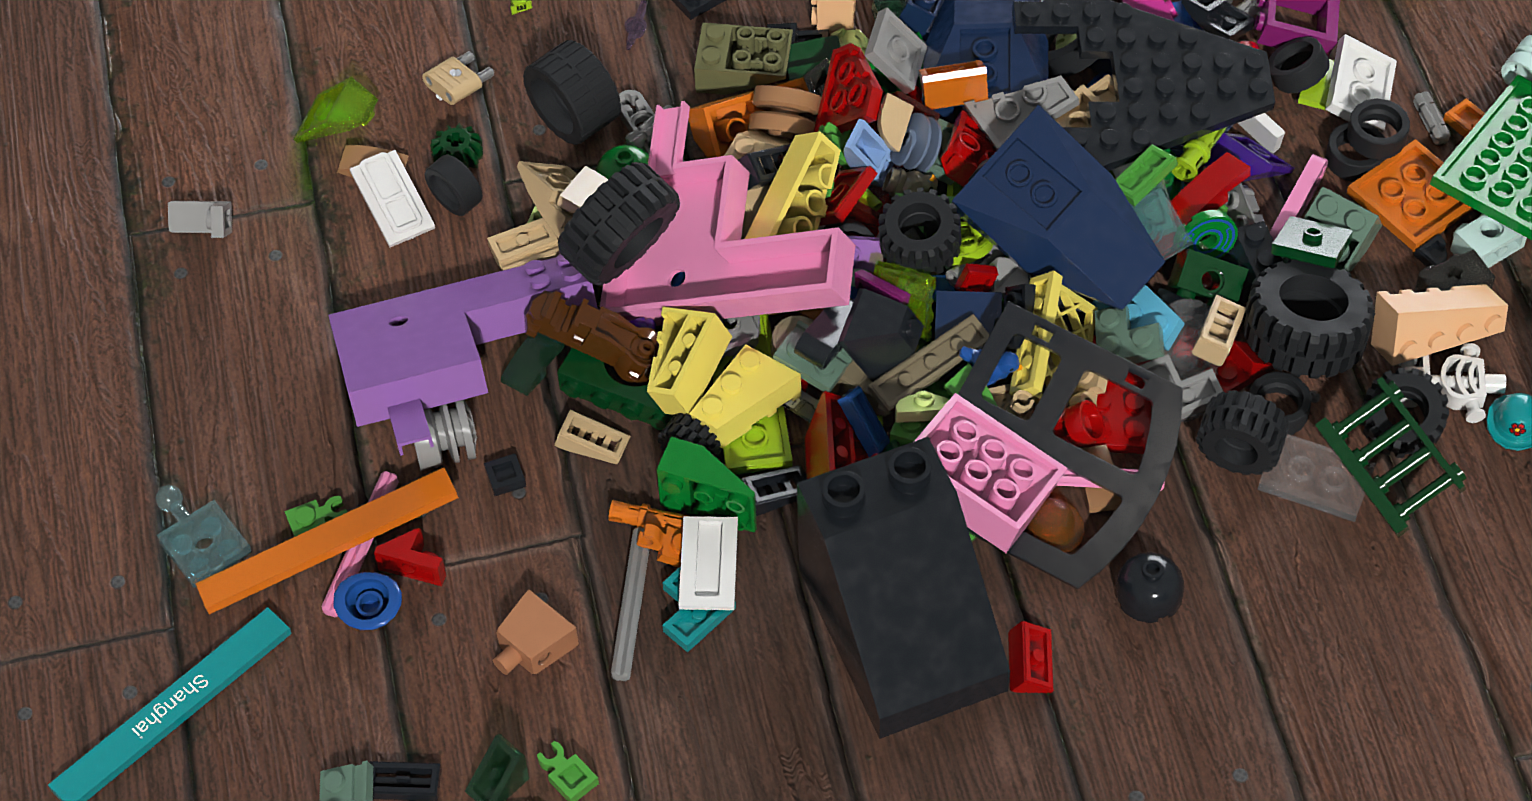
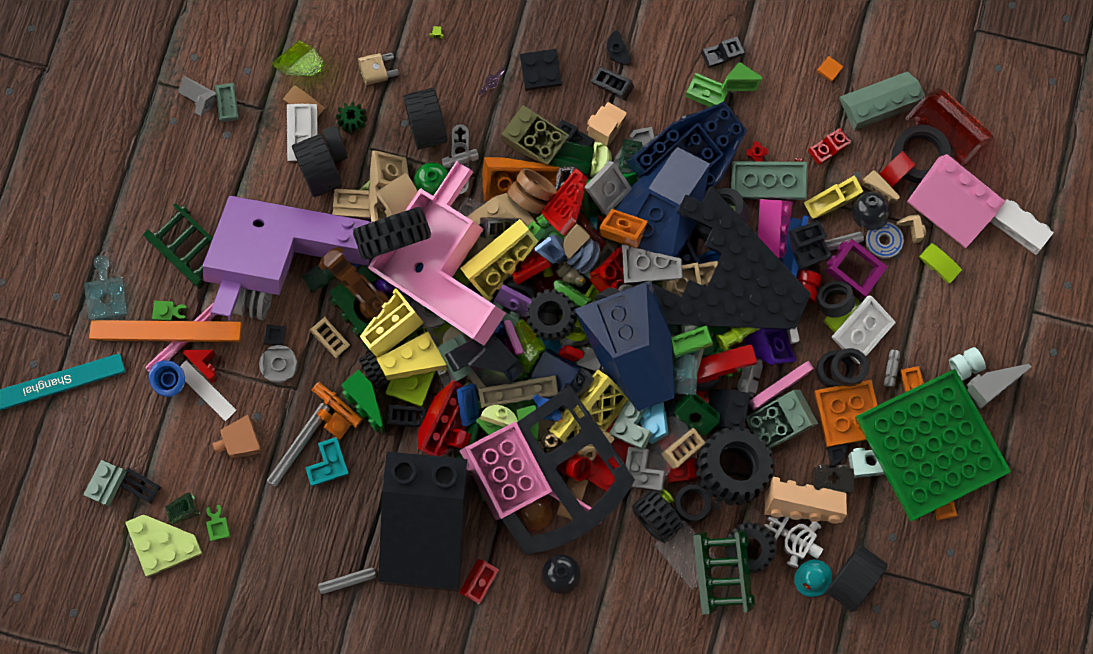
camera: 25 degrees right, 20 degrees up
(254, 210) = (227, 102): none -> sand green plate
(276, 439) = (169, 251): none -> dark green fence
(444, 215) = (317, 165): none -> black tyre
(448, 603) = (207, 391): none -> white sticker
(533, 511) = (278, 364): none -> light grey tile
(708, 563) = (344, 446): white piece -> none
(825, 755) = (347, 580): none -> light grey axle
(1222, 231) = (712, 389): green tile -> none
(1311, 242) = (764, 422): plate -> none

